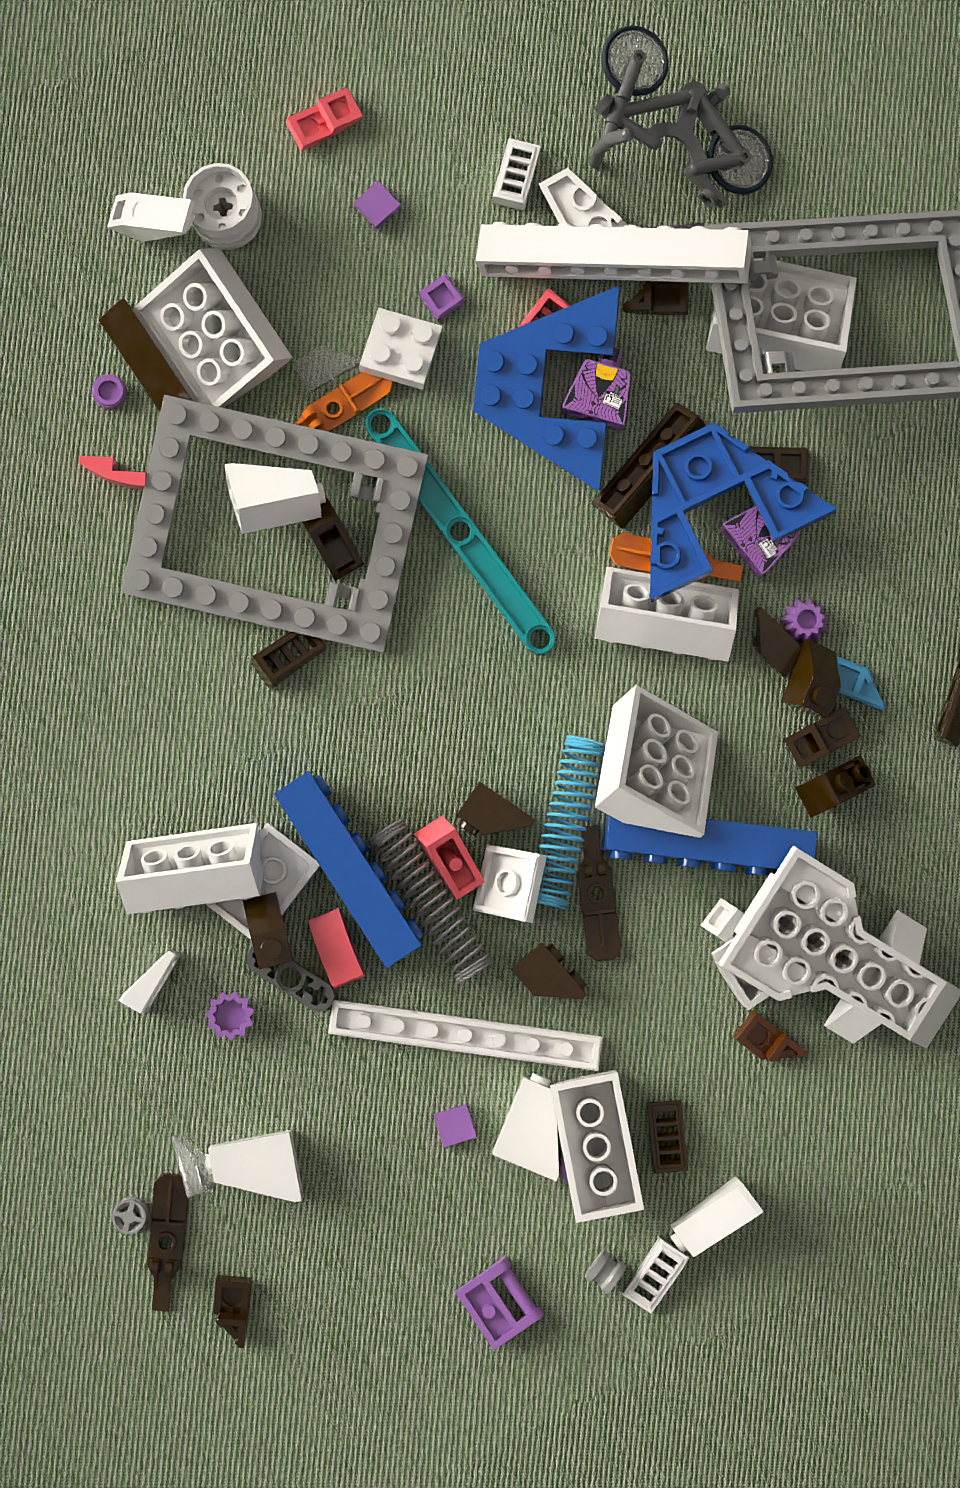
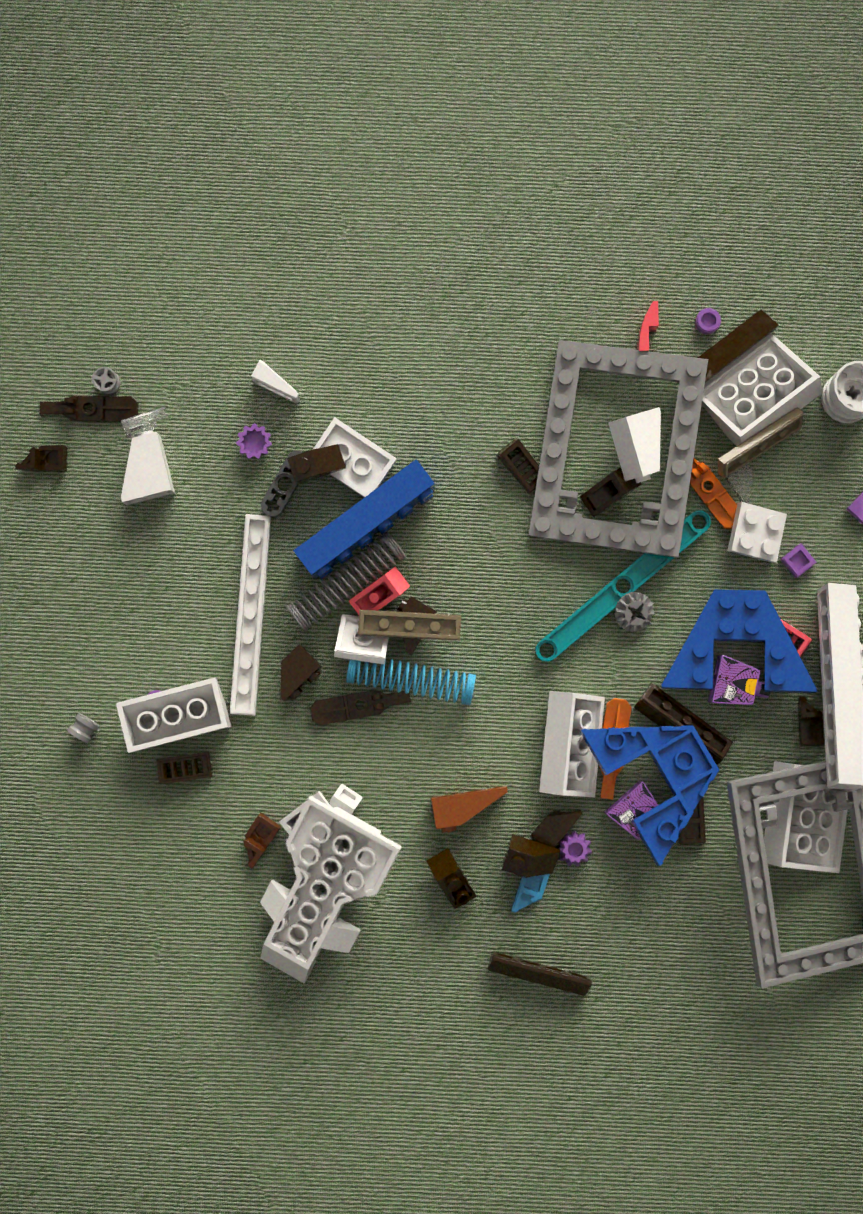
camera: 85 degrees right, 0 degrees up
(151, 216) = (841, 339): white slope -> none
(191, 869) = (358, 405): white slope -> none
(281, 334) = (760, 443): none -> dark tan tile
(336, 948) = (307, 514): coral slope -> none
(455, 1125) = (184, 611): medium lavender tile -> none
(481, 518) = (623, 614): none -> light grey gear
(490, 1310) = (50, 646): medium lavender plate -> none
(496, 818) = (409, 625): none -> dark tan tile
(531, 1129) = (181, 666): white slope -> none
(656, 766) = (456, 742): white slope -> none
(670, 1250) = (99, 777): white slope -> none
(715, 1217) = (126, 806): white slope -> none
(722, 845) = (403, 780): blue brick -> none
(742, 767) = (458, 808): none -> dark orange slope
(822, 737) = (487, 866): dark brown slope -> none

